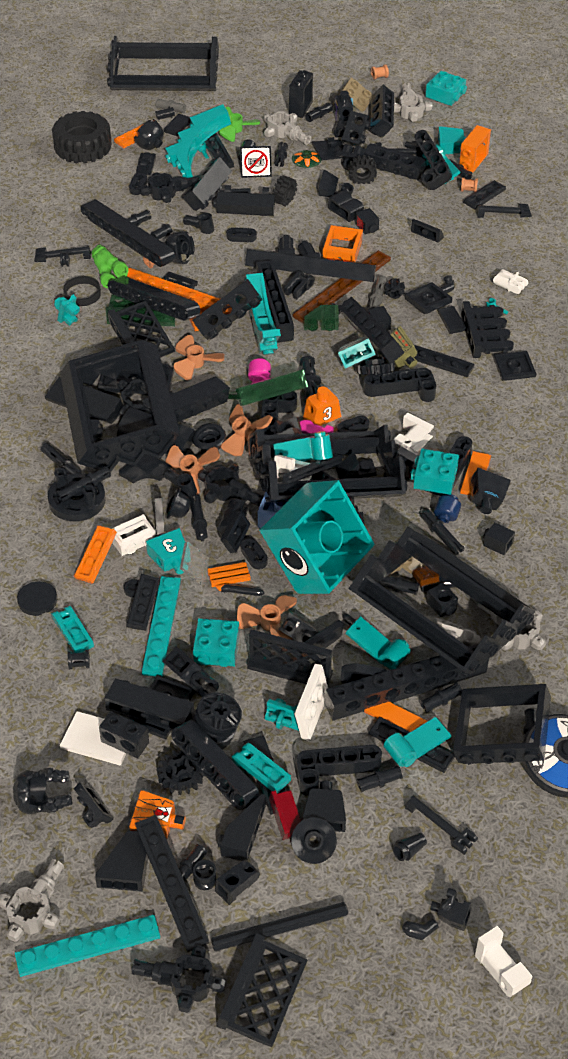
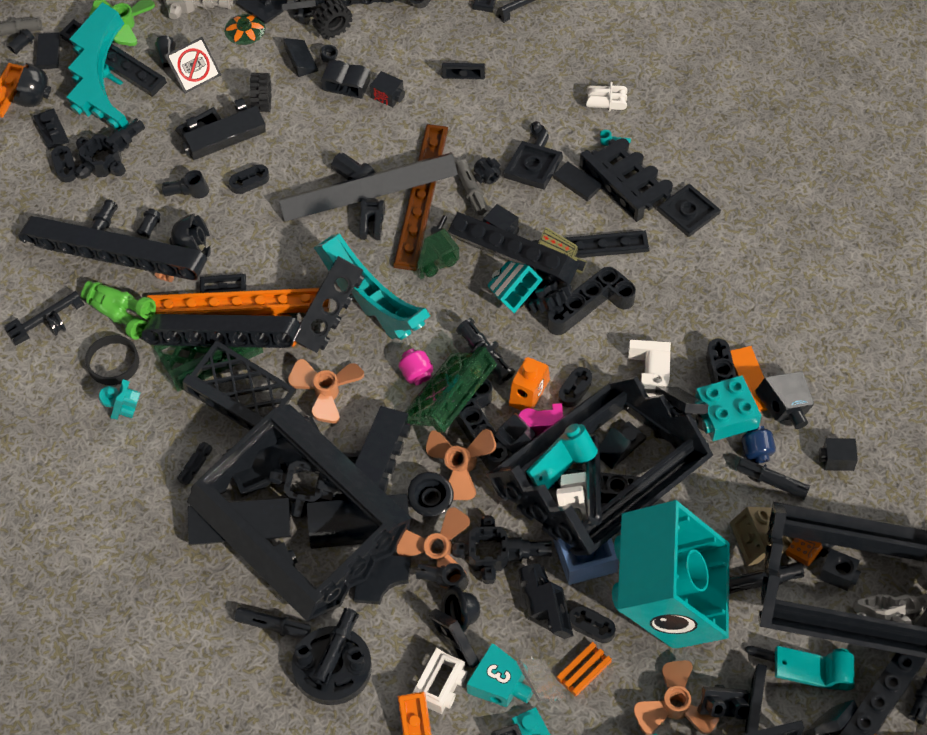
camera: 30 degrees left, 10 degrees up
(199, 522) = (496, 613): black axle -> none
(207, 184) = (157, 126): brick -> none
(240, 590) = (595, 688): black piece -> none
(276, 301) = (327, 223): black brick -> none
(281, 154) = (211, 37): black pin -> none
(286, 245) = (319, 172): black piece -> none
(346, 254) = (379, 156): orange window -> none

